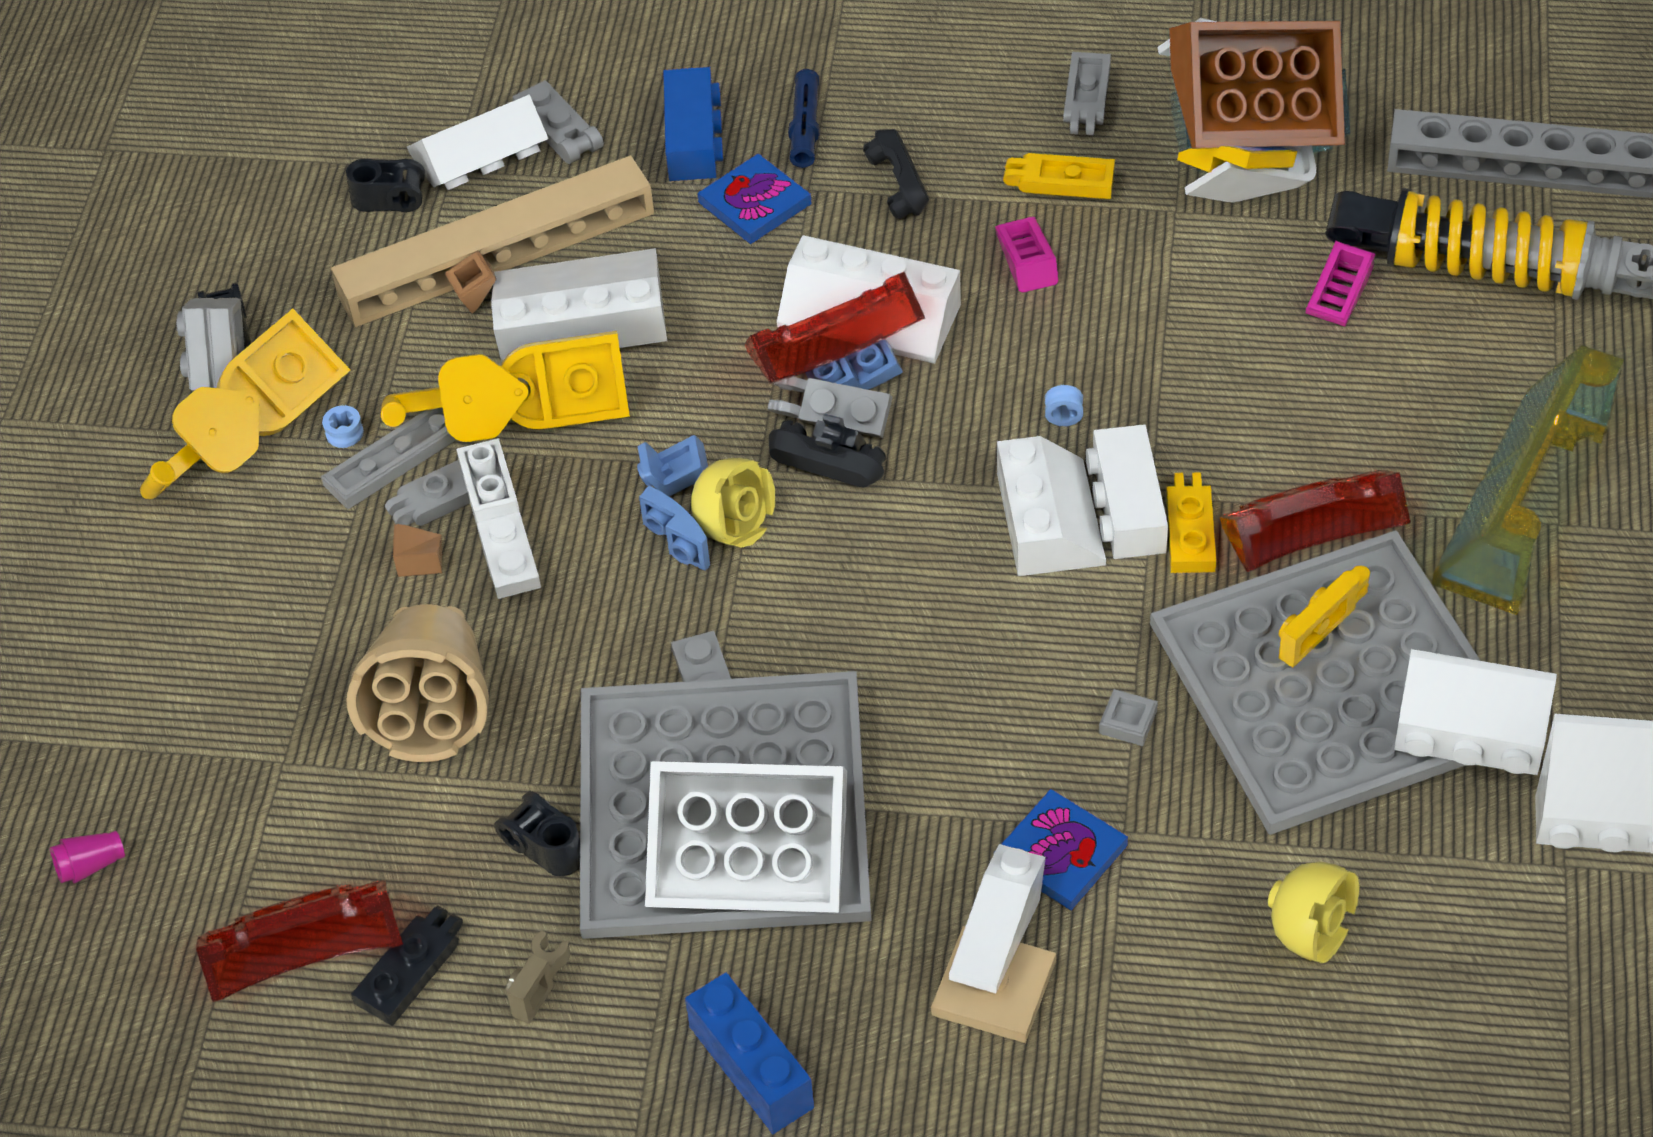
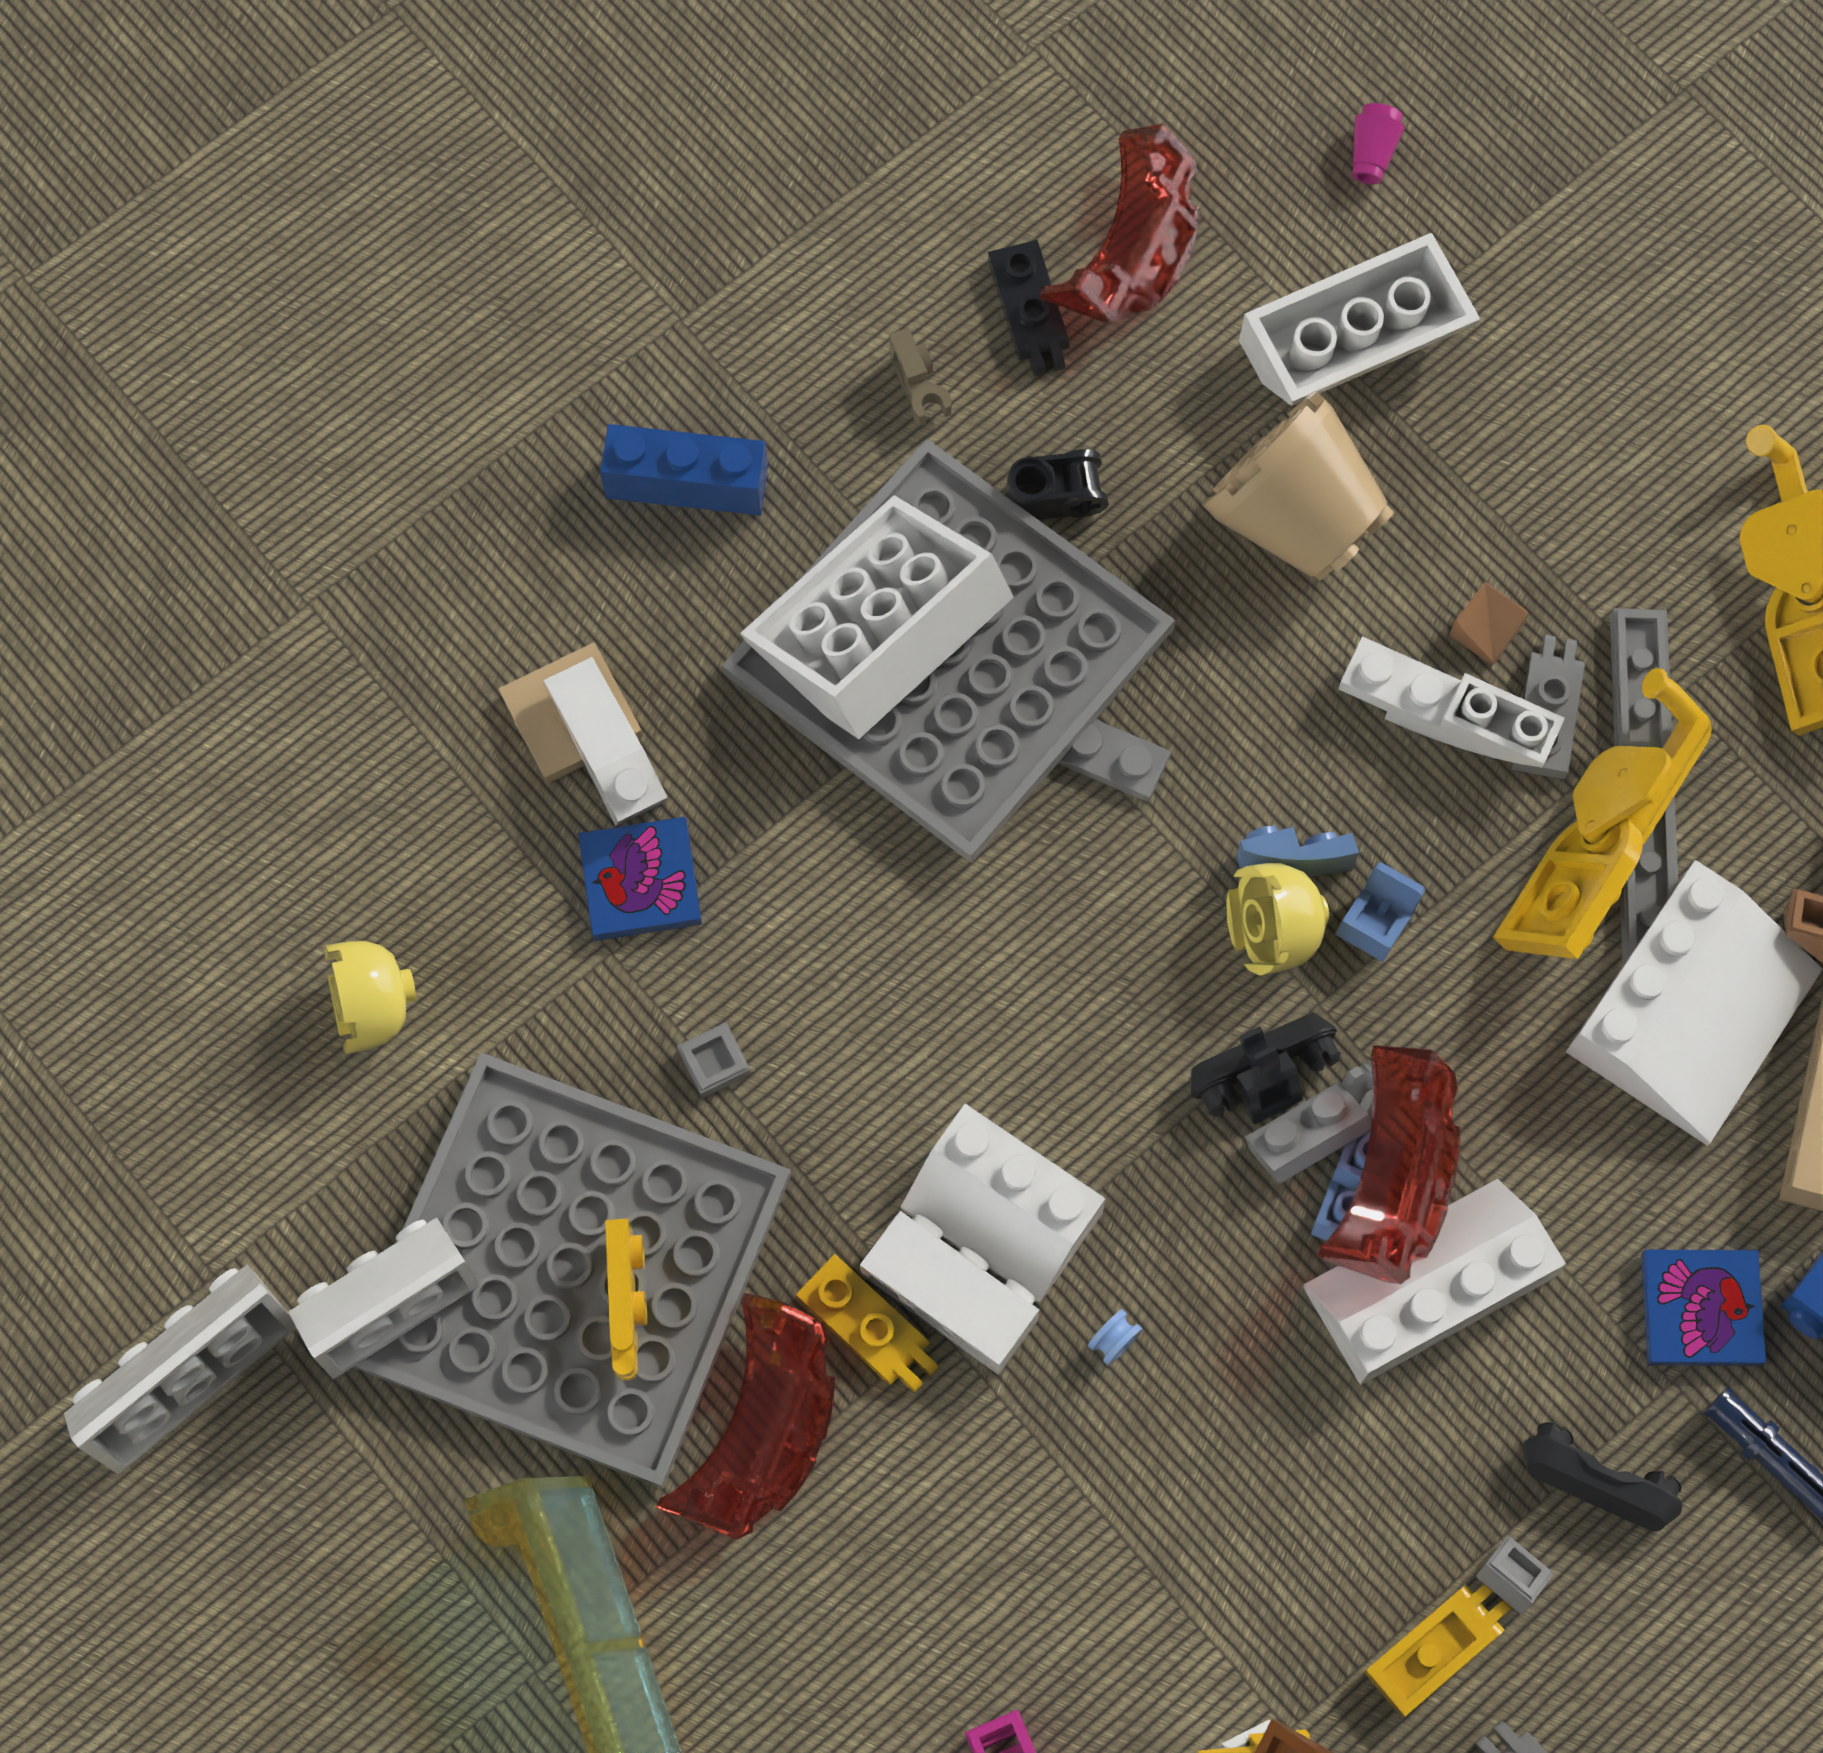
camera: 130 degrees right, 20 degrees up
(258, 745) = (1356, 321): none -> white slope
(343, 435) = (1728, 661): light blue bush -> none
(990, 170) = (1514, 1575): none -> light grey tile
(1028, 258) = (1321, 1485): dark pink slope -> none

